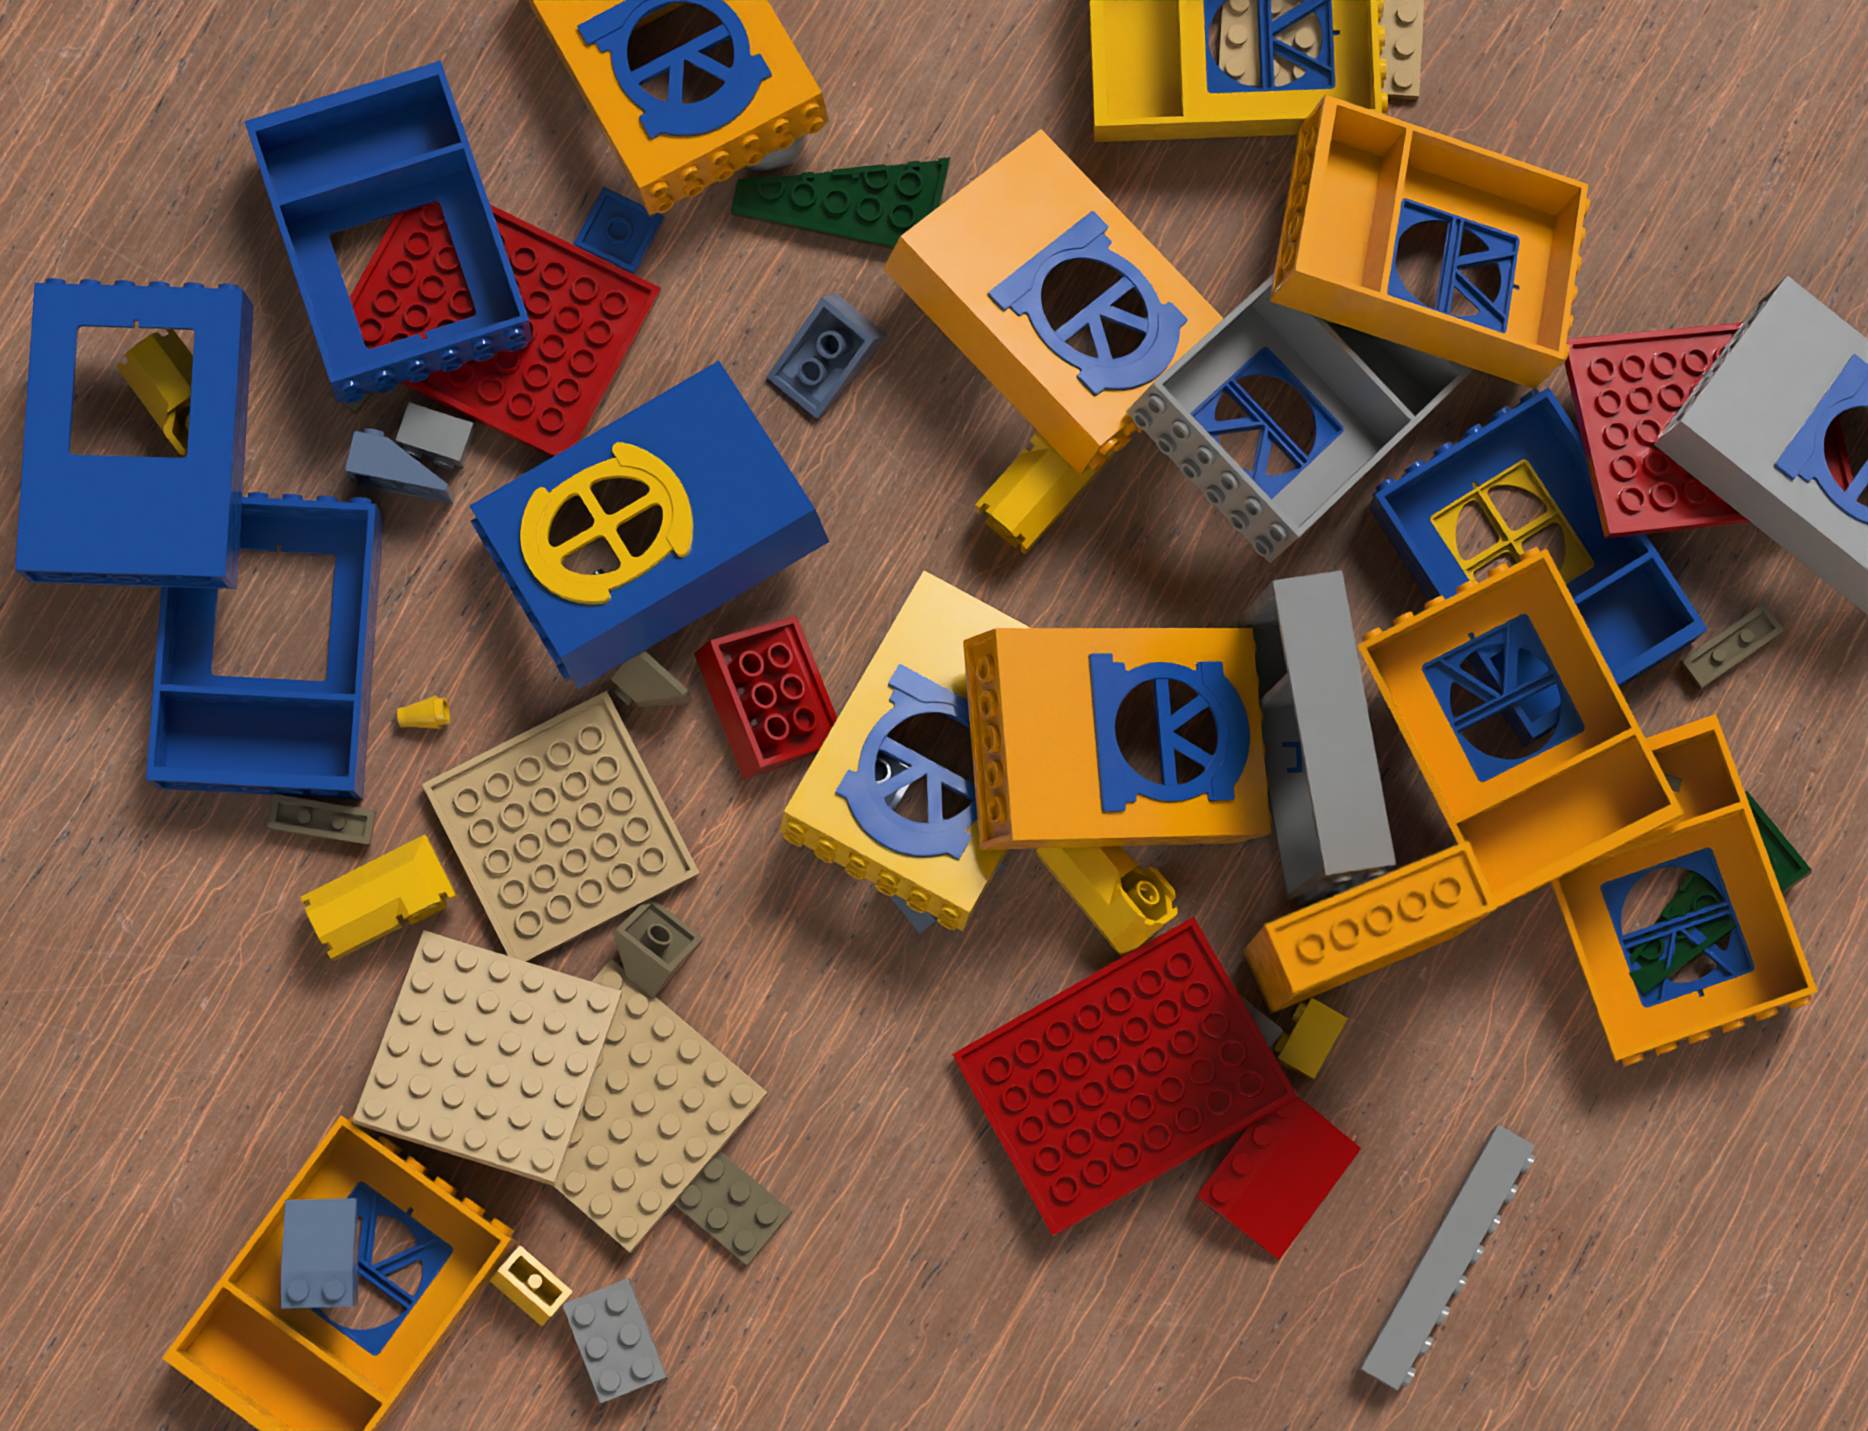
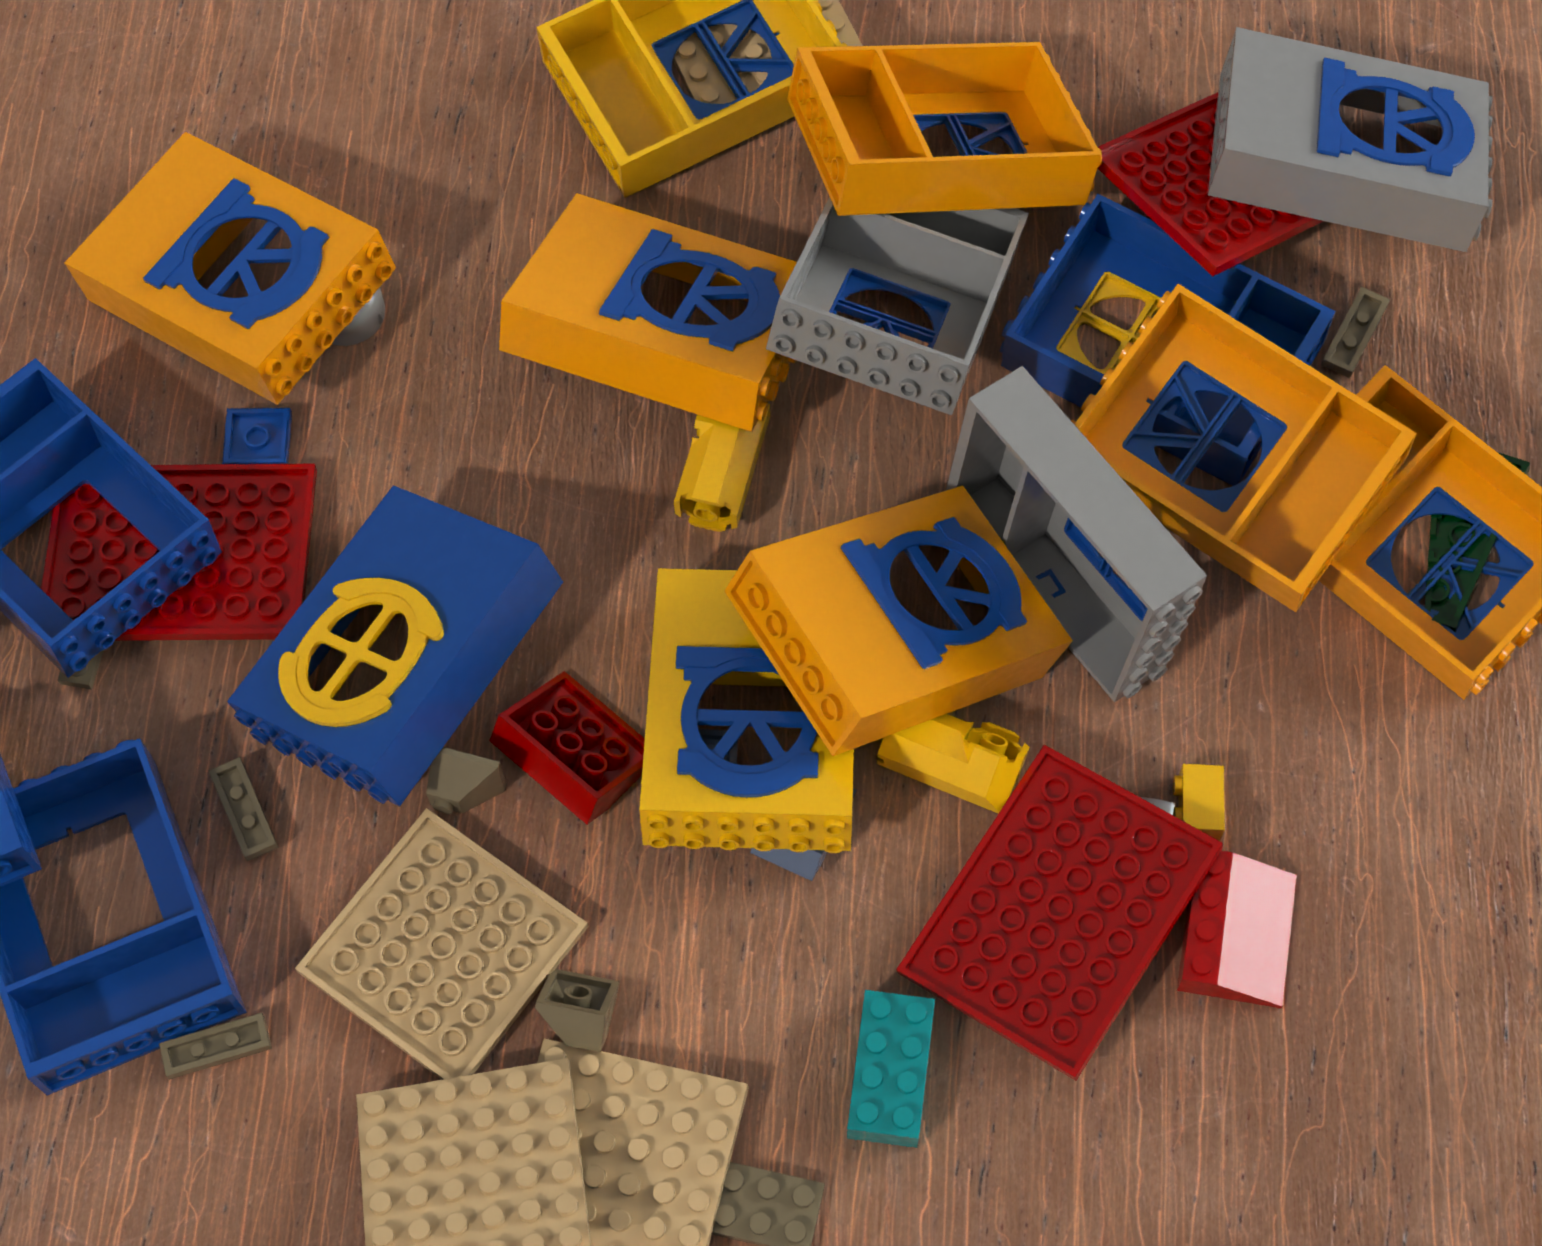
camera: 25 degrees left, 15 degrees down
(378, 897) = (299, 1085): yellow brick -> none
(383, 465) = (147, 710): sand blue slope -> none
(427, 713) = (272, 905): yellow cone -> none
(435, 436) = (171, 670): light grey brick -> none
(442, 606) = (243, 809): none -> dark tan plate
(826, 354) = (484, 453): sand blue slope -> none
(848, 203) = (444, 331): dark green wing -> none
(900, 1141) = (891, 1068): none -> teal brick
(1369, 927) = (1210, 649): light orange panel -> none
(1447, 1257) = (1426, 931): light grey brick -> none

